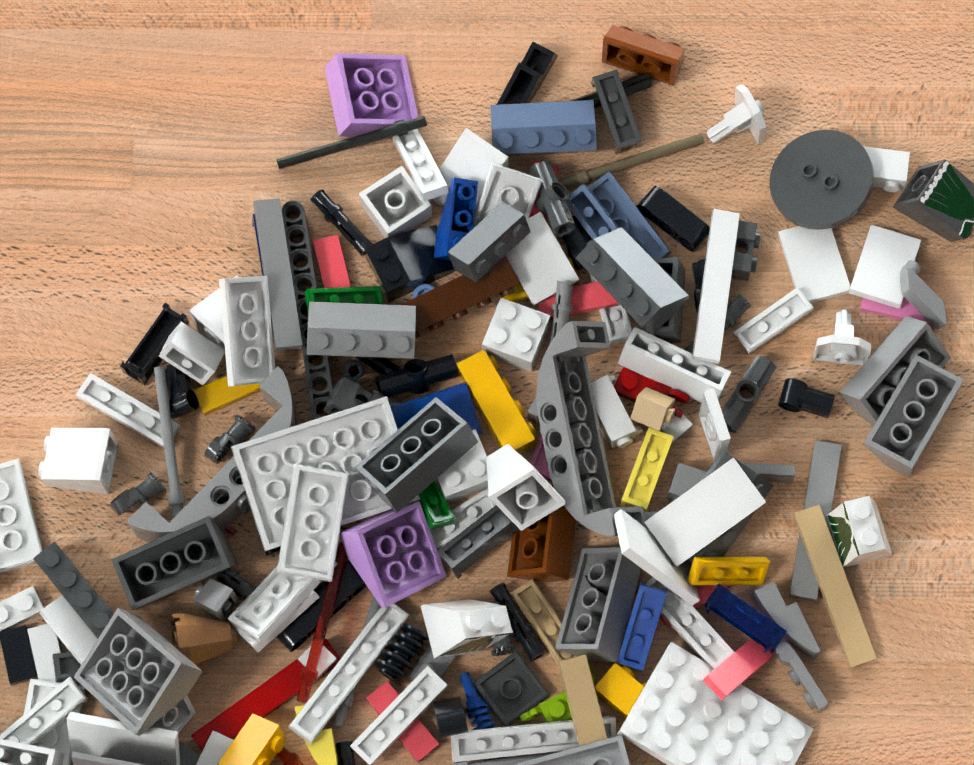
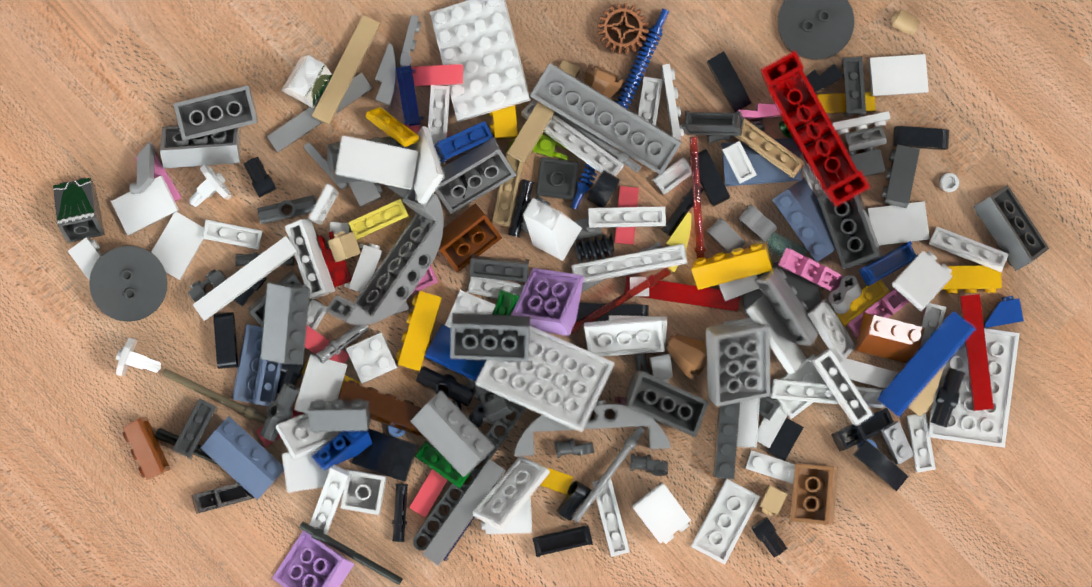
camera: 135 degrees left, 15 degrees up
(192, 353) = (549, 512): white brick -> none
(312, 523) = (577, 352): white tile -> none
(519, 488) = (455, 269): white slope -> none

